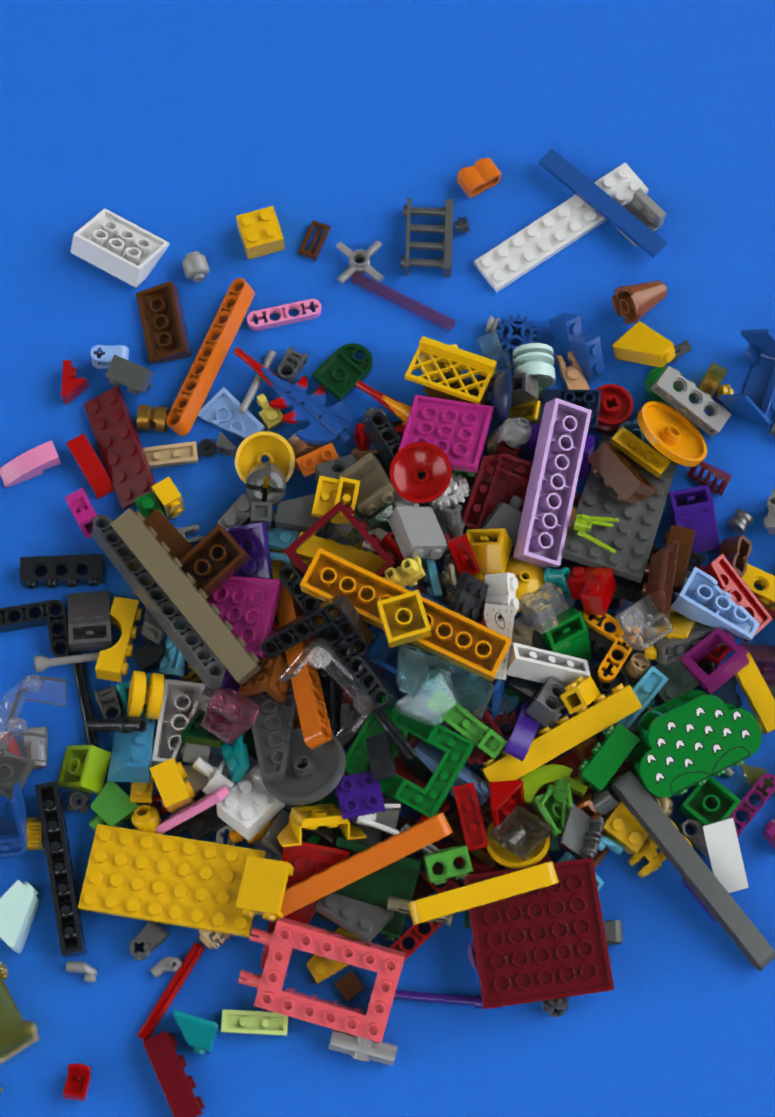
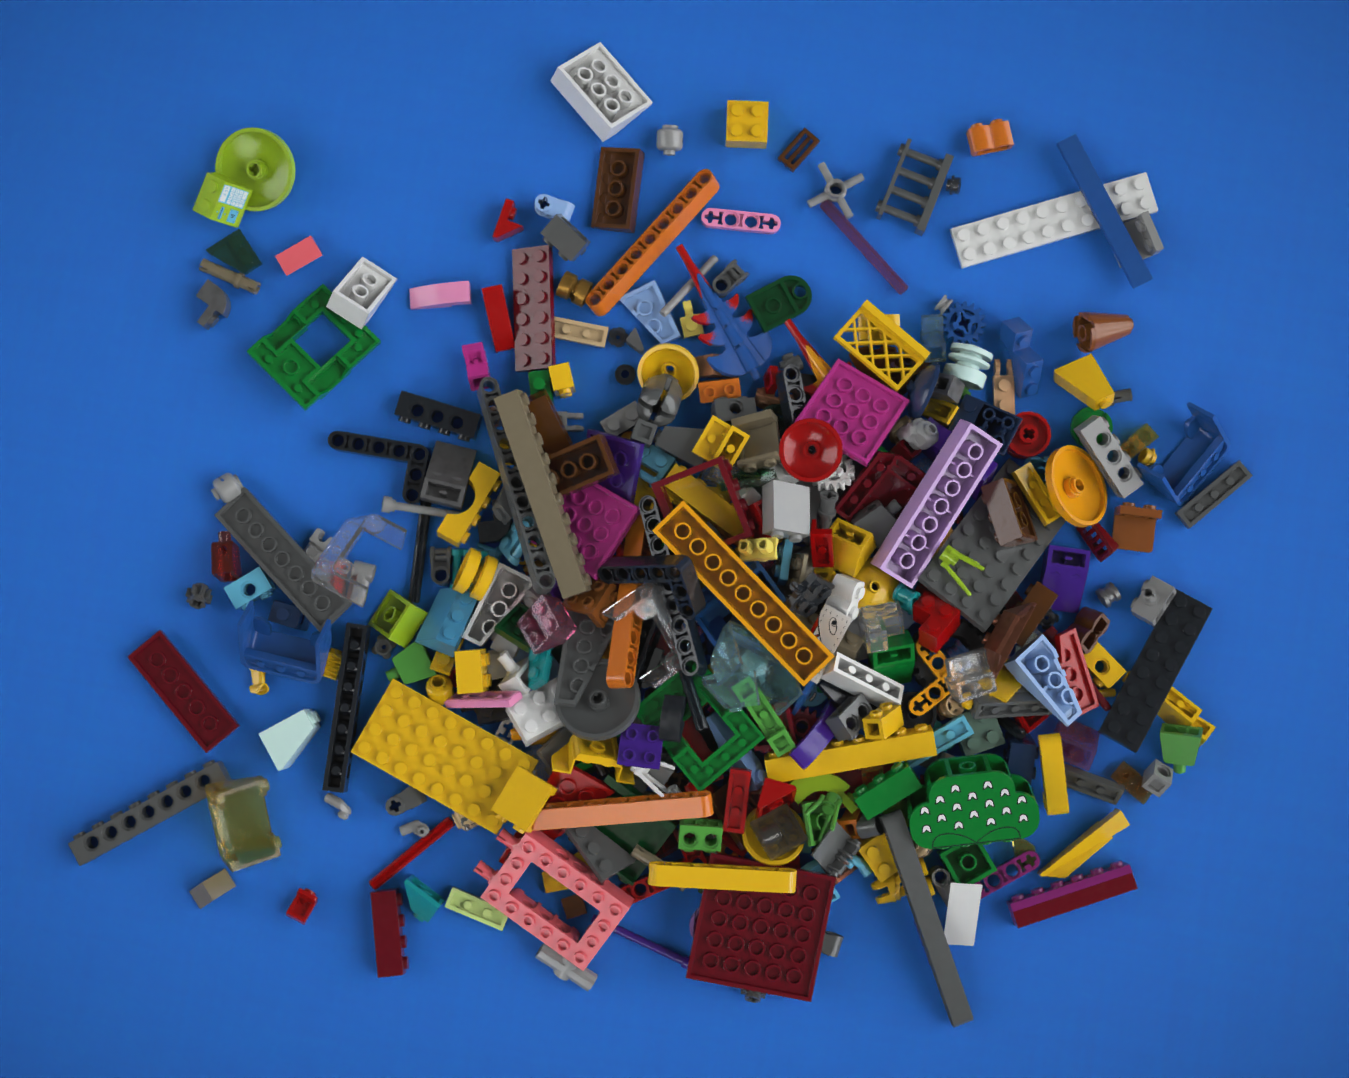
camera: 20 degrees right, 15 degrees up
(124, 725) = (445, 594): black pin -> none
(225, 483) = (625, 381): none -> black plate
(404, 618) = (737, 604): yellow brick -> none
(723, 672) = (1031, 748): magenta window -> none
(739, 454) = (1135, 526): none -> dark orange bracket

